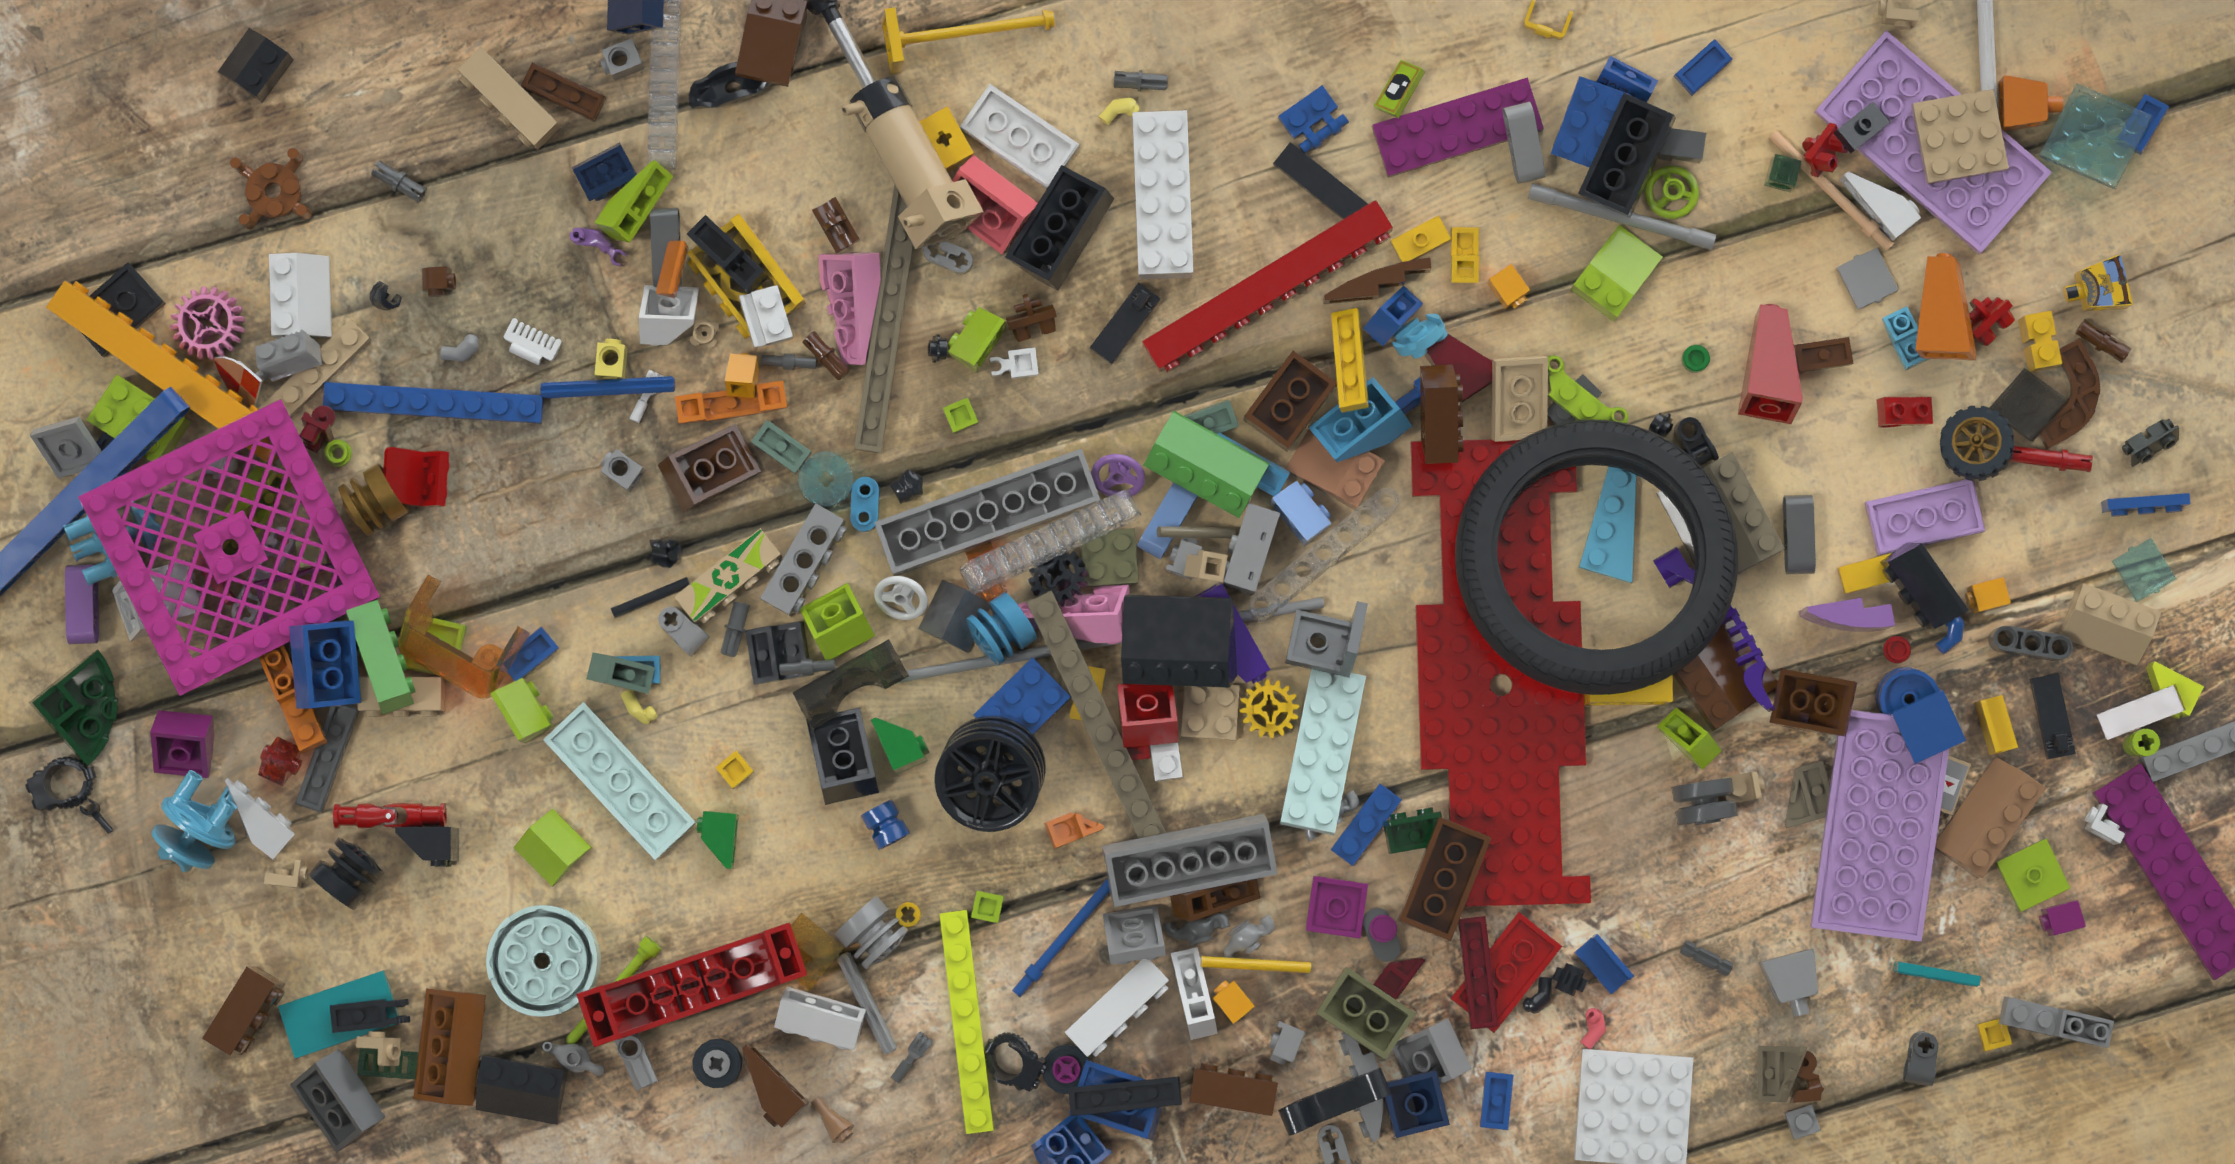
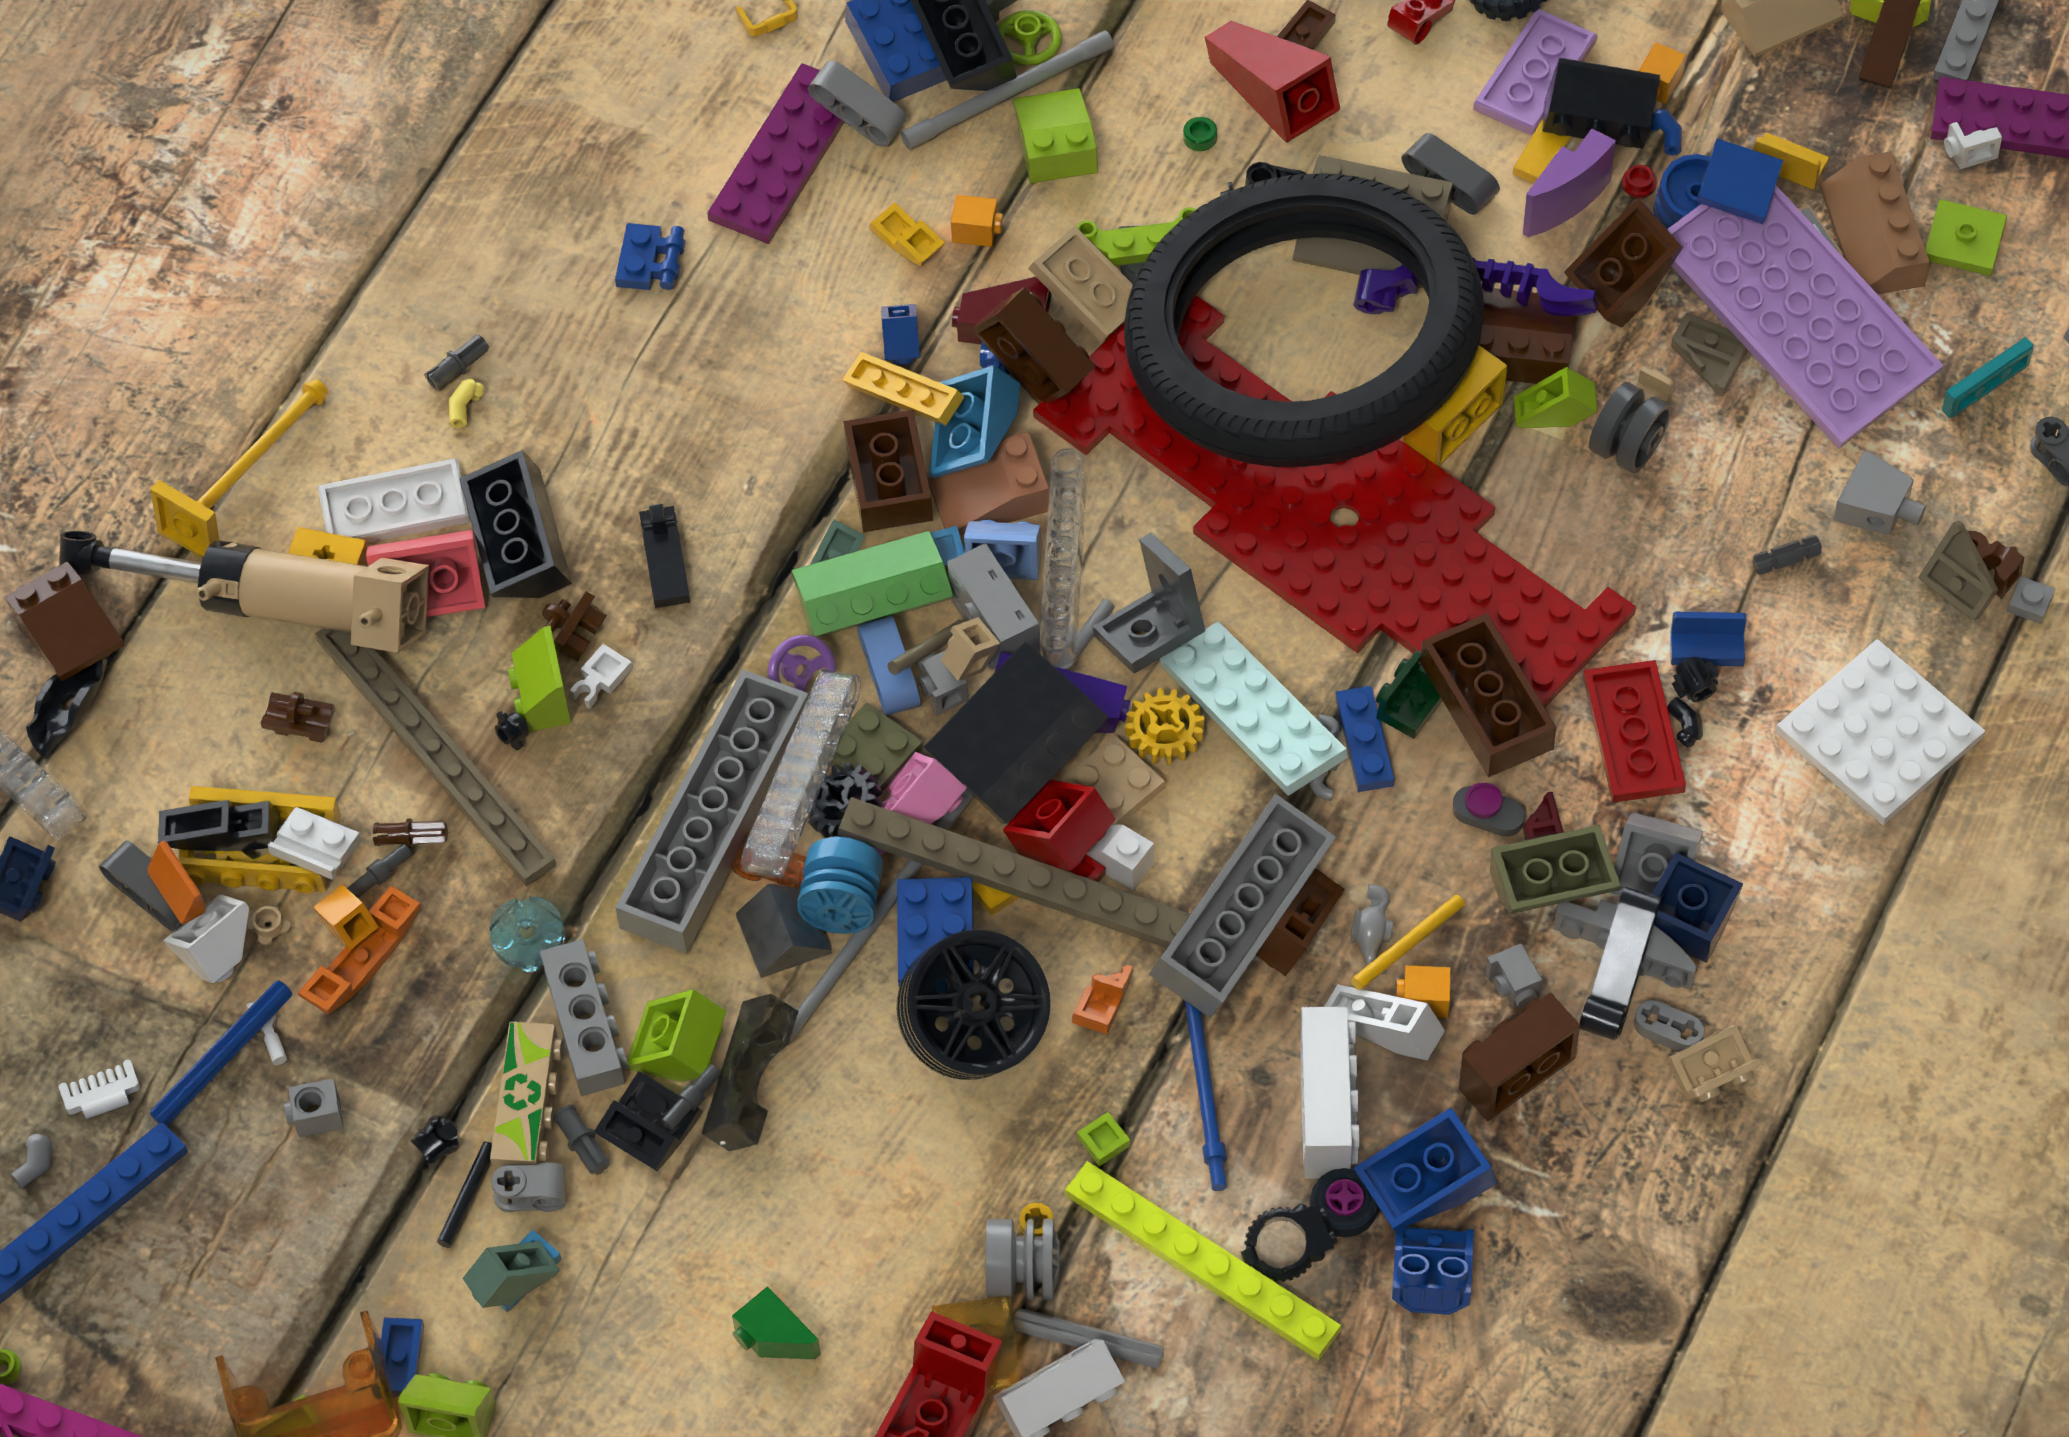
camera: 45 degrees left, 25 degrees down
(371, 500) = (84, 1361): pearl gold wheel -> none
(417, 476) = (113, 1305): red bracket -> none
(598, 239) = (66, 946): medium lavender arm -> none
(614, 371) = (194, 1011): light yellow brick -> none
(619, 781) = (617, 1380): light aqua plate -> none
(633, 203) = (76, 877): lime slope -> none
(635, 709) = (554, 1301): light yellow arm -> none
(708, 468) = (399, 1029): reddish brown slope -> none
(734, 769) = (721, 1259): yellow plate -> none
(781, 447) = (452, 945): sand green plate -> none
(843, 757) = (817, 1145): black slope -> none
(853, 290) = (376, 759): bright pink wedge -> none
(864, 504) = (586, 919): dark azure plate -> none
(885, 824) = (923, 1160): blue wheel -> none
(900, 745) = (855, 1065): green slope -> none
(901, 595) = (704, 947): white piece -> none
(907, 486) = (613, 864): black arm -> none
(916, 1050) = (1184, 1333): dark grey piece -> none
(945, 262) = (435, 652): light grey beam -> none
(960, 415) = (596, 763): lime plate -> none
(1125, 1096) = (1427, 1149): black plate -> none
(1134, 935) = (1269, 1011): light grey plate -> none
(1162, 195) = (581, 424): white brick -> none
(1198, 930) = (1320, 964): dark grey piece -> none
(1268, 286) = (760, 409): red brick -> none
(1318, 182) = (720, 297): black tile -> none
(1336, 907) = (1421, 825): magenta plate -> none
(1367, 285) = (852, 326): reddish brown slope -> none
(1399, 89) = (699, 166): tile -> none
(1418, 336) = (943, 319): medium azure plate -> none
(1420, 240) = (855, 259): yellow plate -> none
(1477, 972) = (1613, 750): dark red tile -> none
(1496, 1100) = (1757, 840): blue plate -> none
(1596, 1027) = (1764, 699): coral arm -> none
(1611, 533) = (1289, 317): medium azure wing -> none
(2043, 643) = (1739, 75): dark grey beam -> none
(2052, 716) = (1826, 112): black hinge -> none
(2062, 918) = (2031, 239): magenta brick -> none
(2149, 740) = (1921, 52): lime axle -> none

